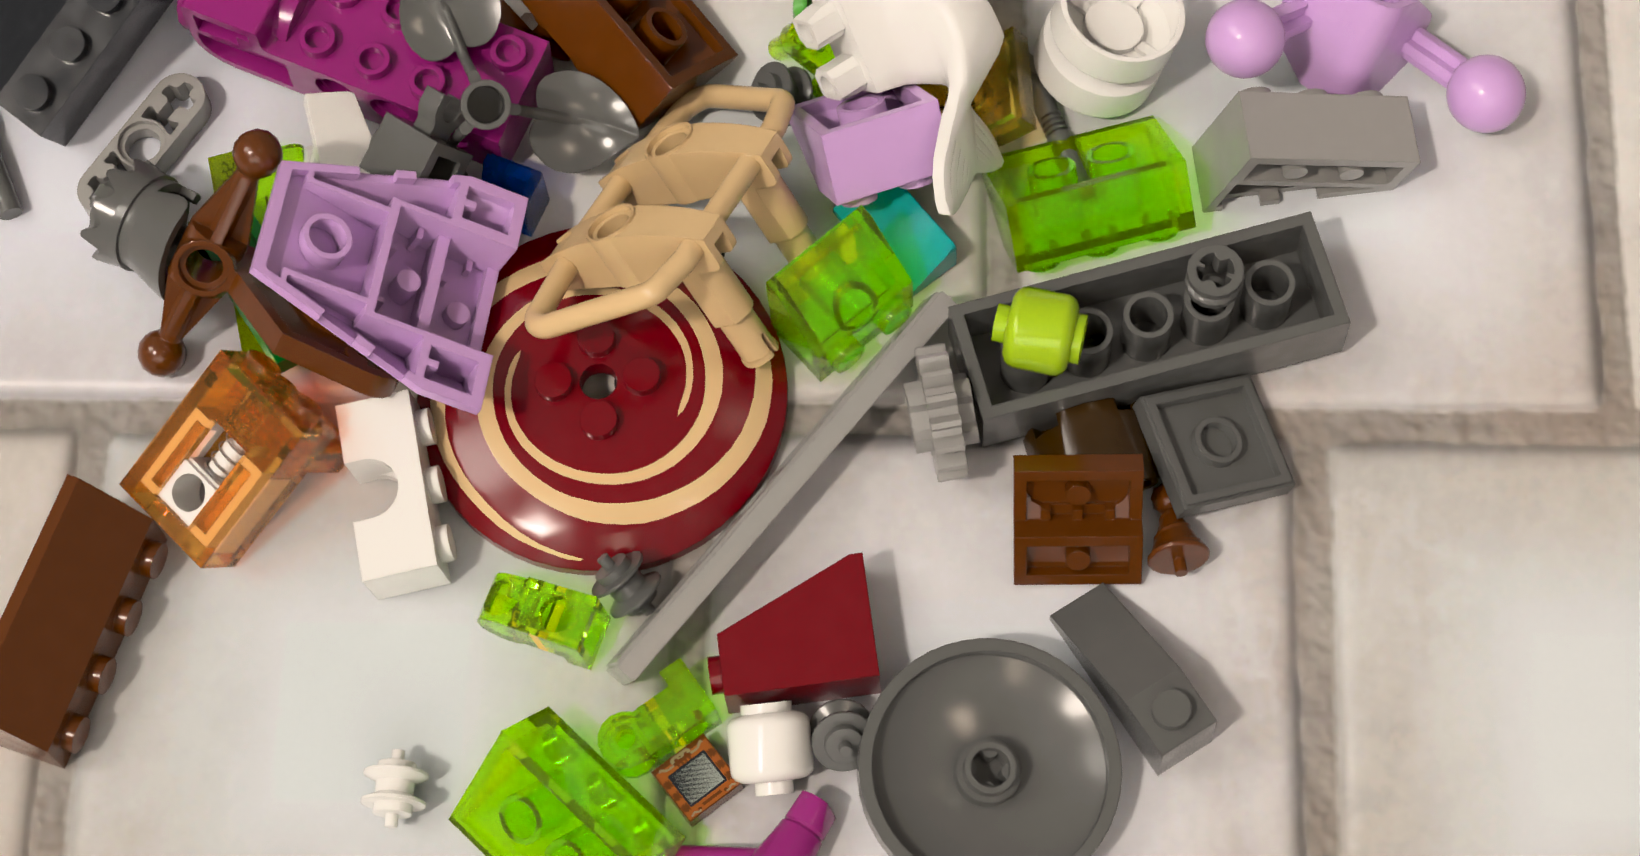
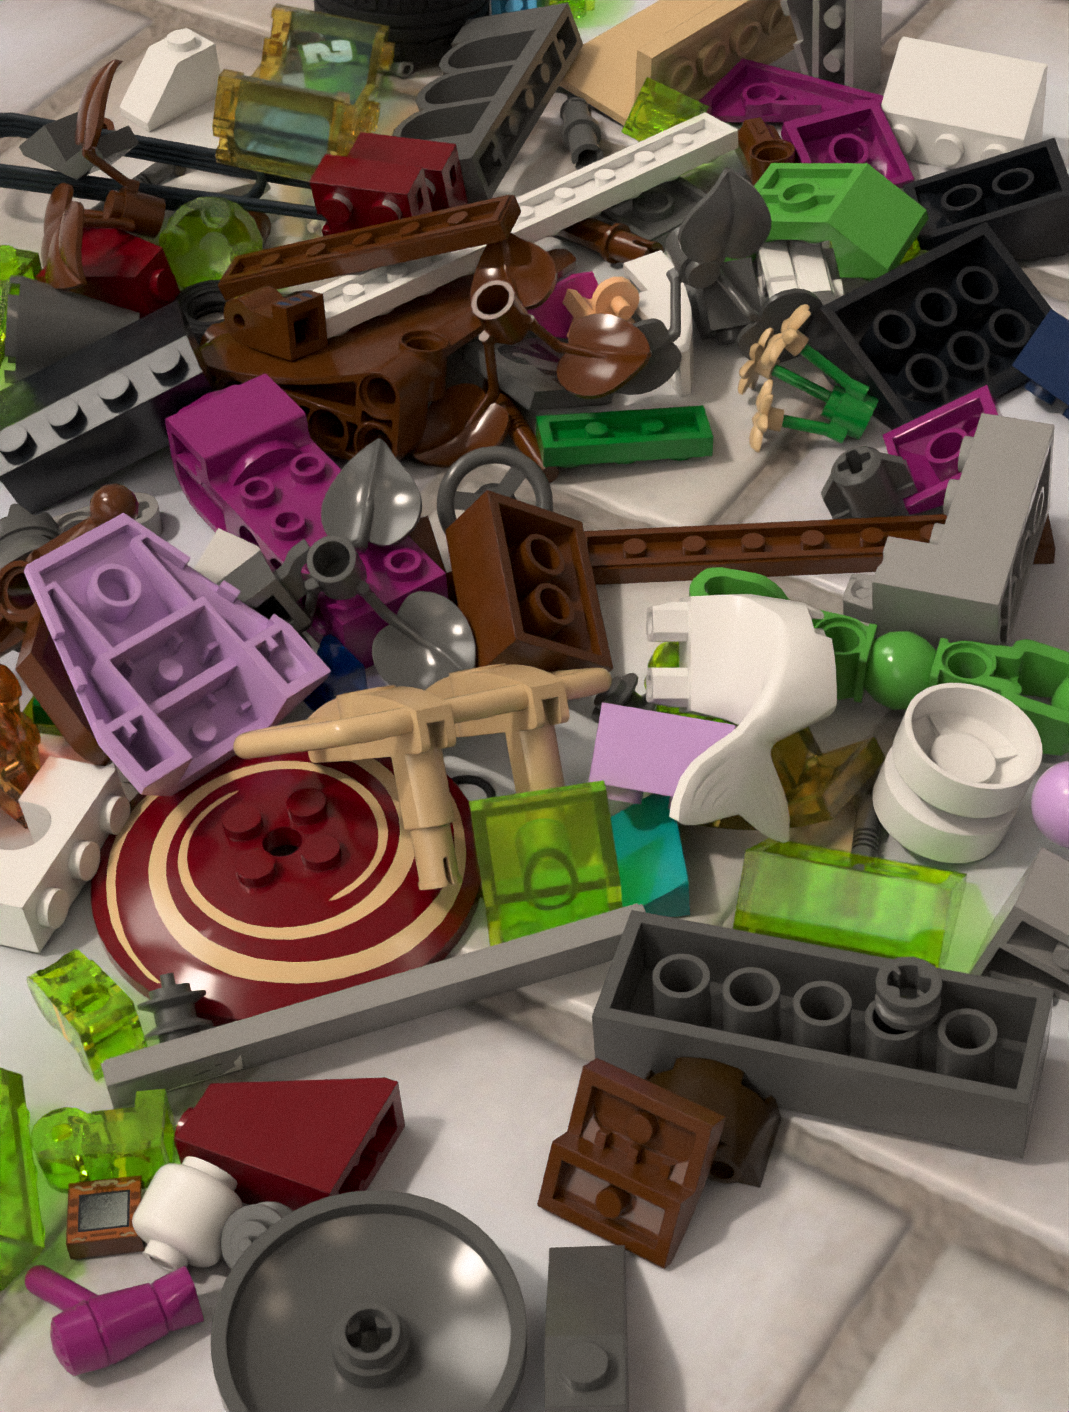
camera: 30 degrees right, 25 degrees down
(941, 412) = (560, 1000): light grey gear -> none
(1040, 331) = (696, 956): lime head -> none
(1175, 545) = (718, 1243): reddish brown piece -> none
(1213, 446) = (822, 1173): dark grey tile -> none

